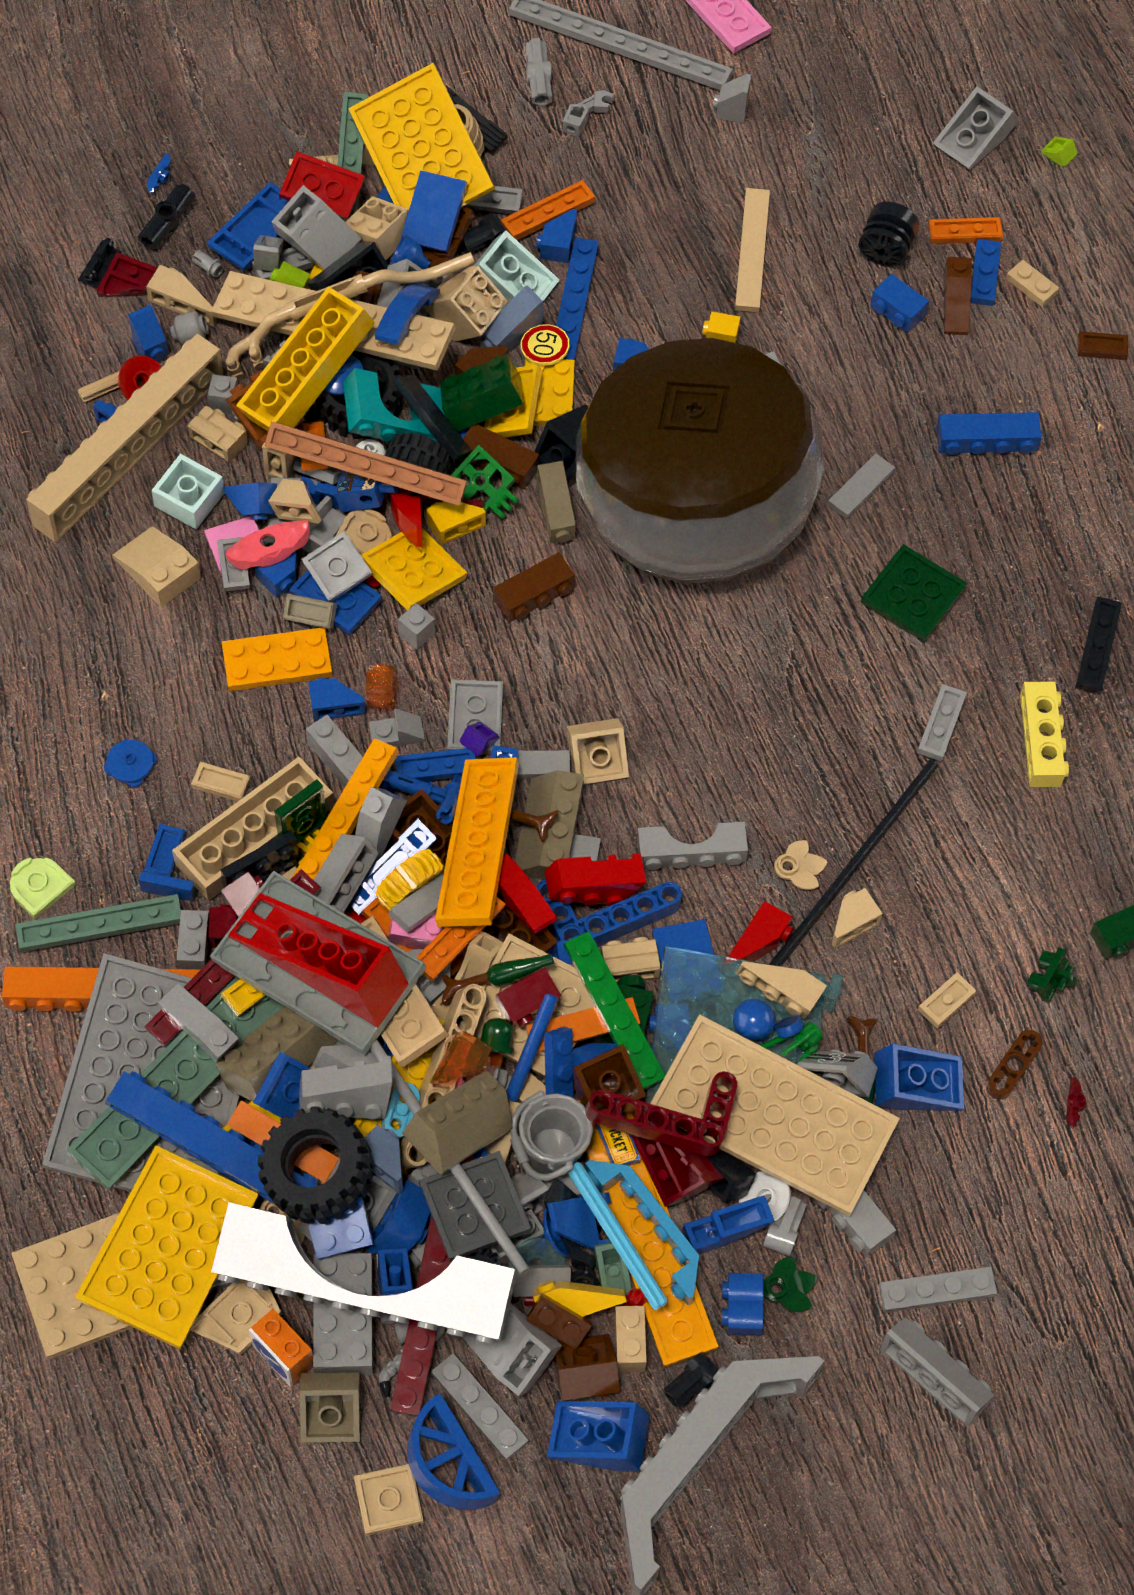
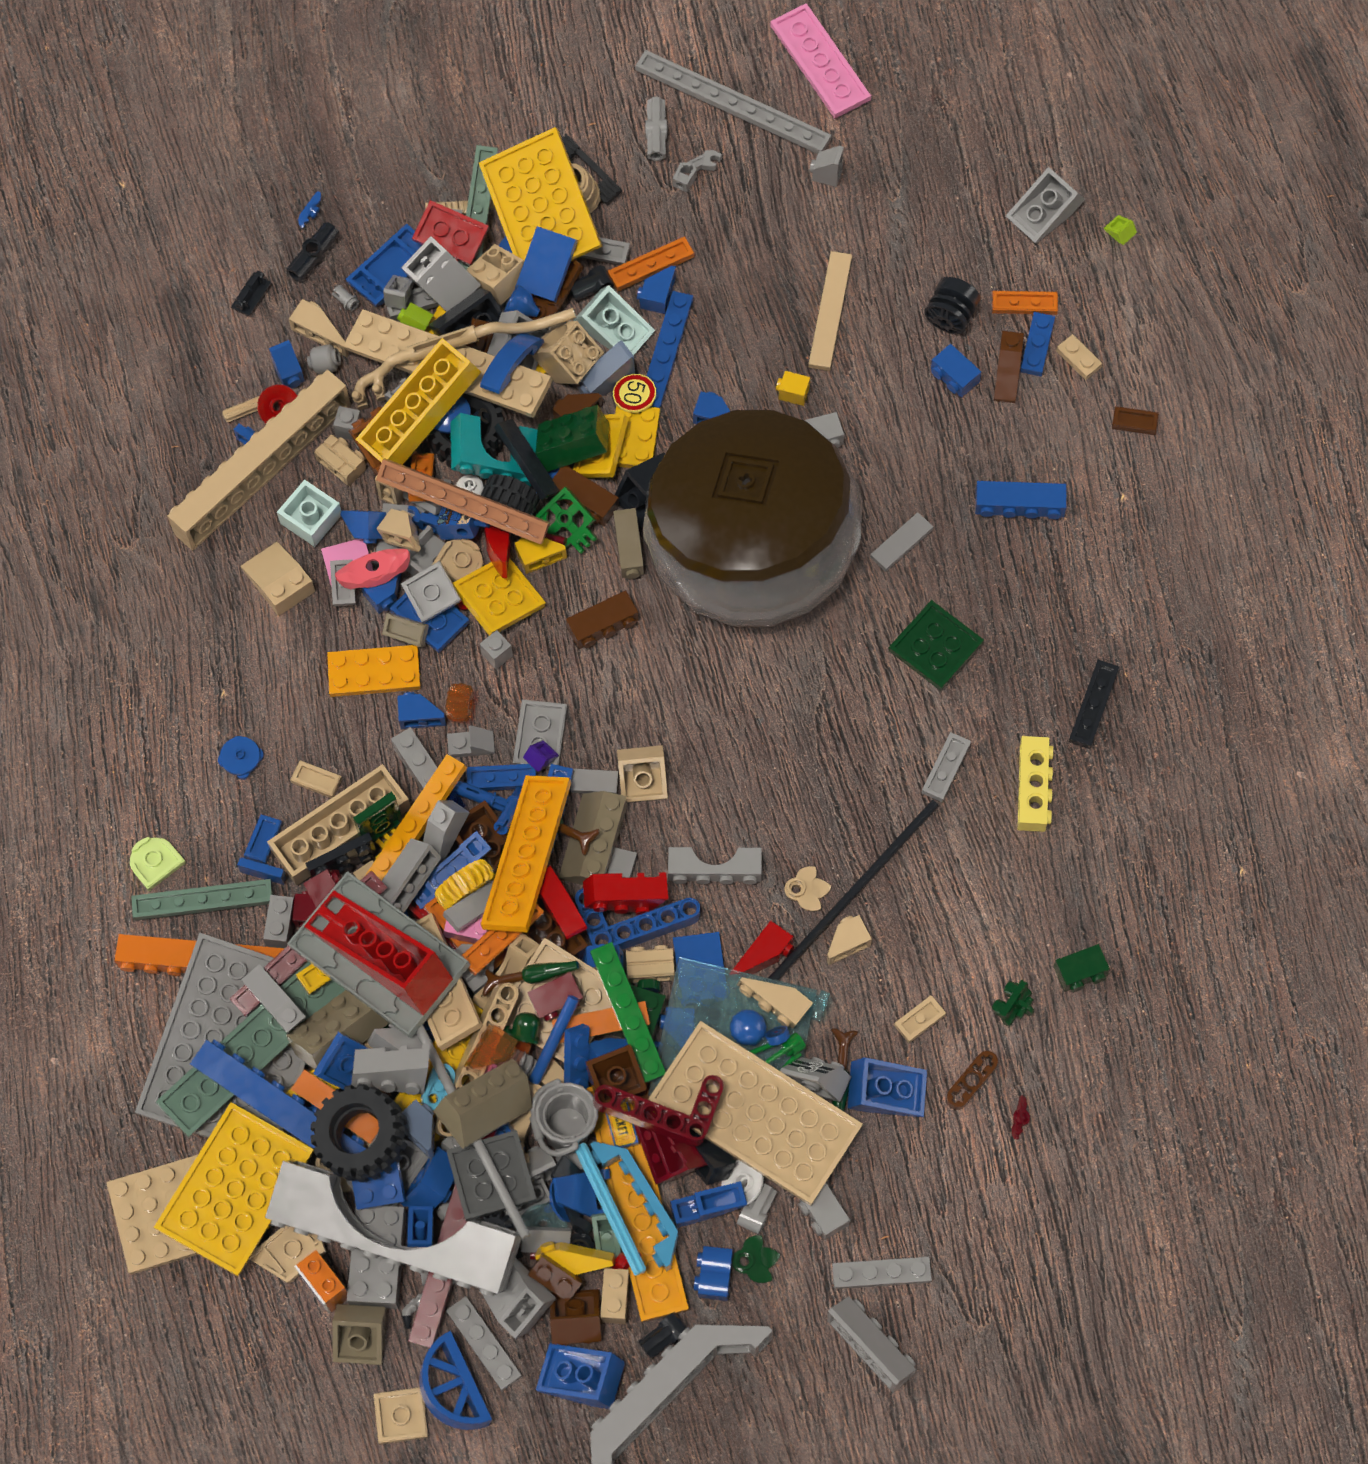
camera: 10 degrees right, 5 degrees up
(125, 277) = (272, 307): dark red wing -> none

